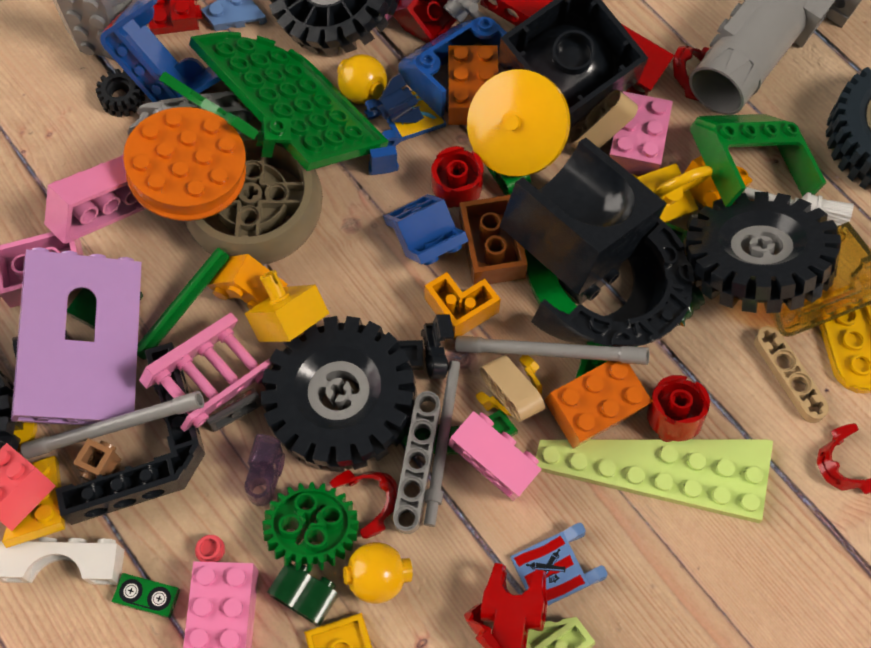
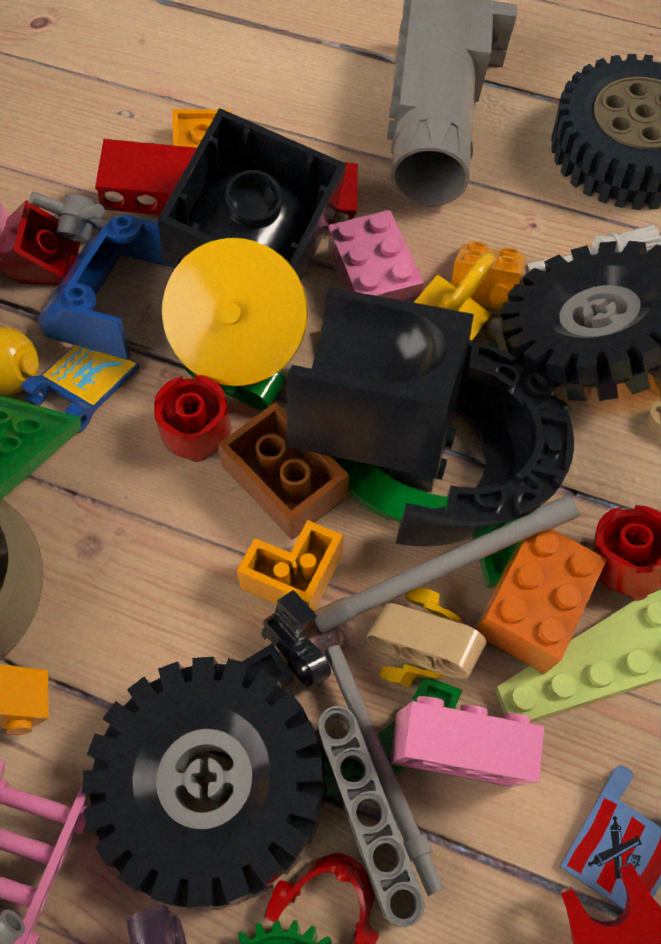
camera: 30 degrees left, 5 degrees down
(234, 409) = (67, 892): dark grey slope -> none
(286, 310) = (68, 710): yellow brick -> none
(383, 160) = (86, 444): blue tile -> none
(398, 102) = (66, 365): dark blue brick -> none
(426, 229) = (193, 500): blue bracket -> none
(467, 71) = (134, 291): orange brick -> none
(604, 120) = (330, 262): tan beam -> none
(679, 66) = (366, 165): red helmet -> none
(719, 132) = (470, 221): green windscreen -> none

